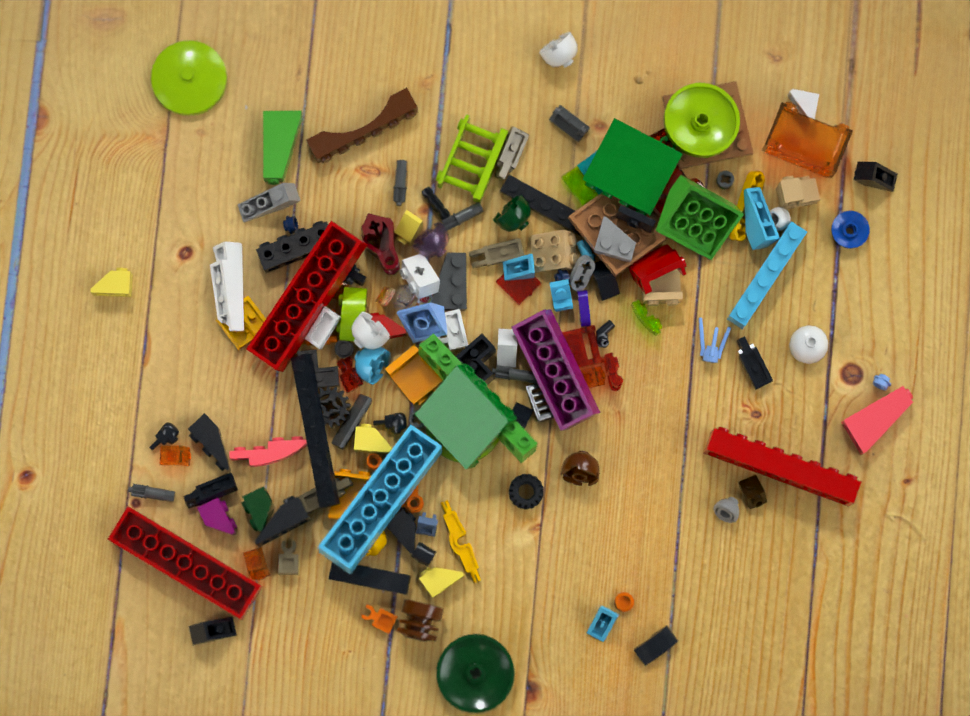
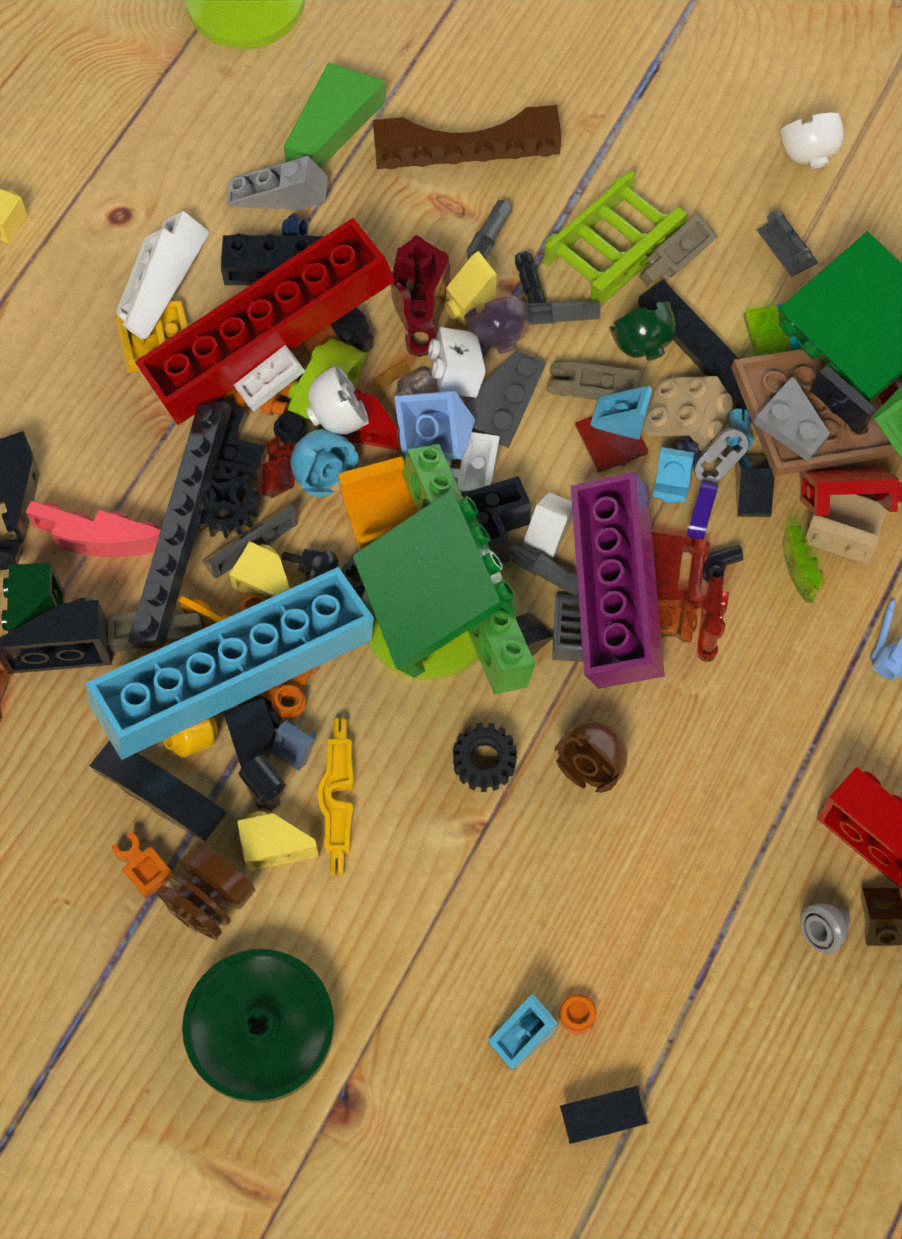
camera: 25 degrees right, 15 degrees down
(288, 561) = (39, 711): dark tan plate -> none

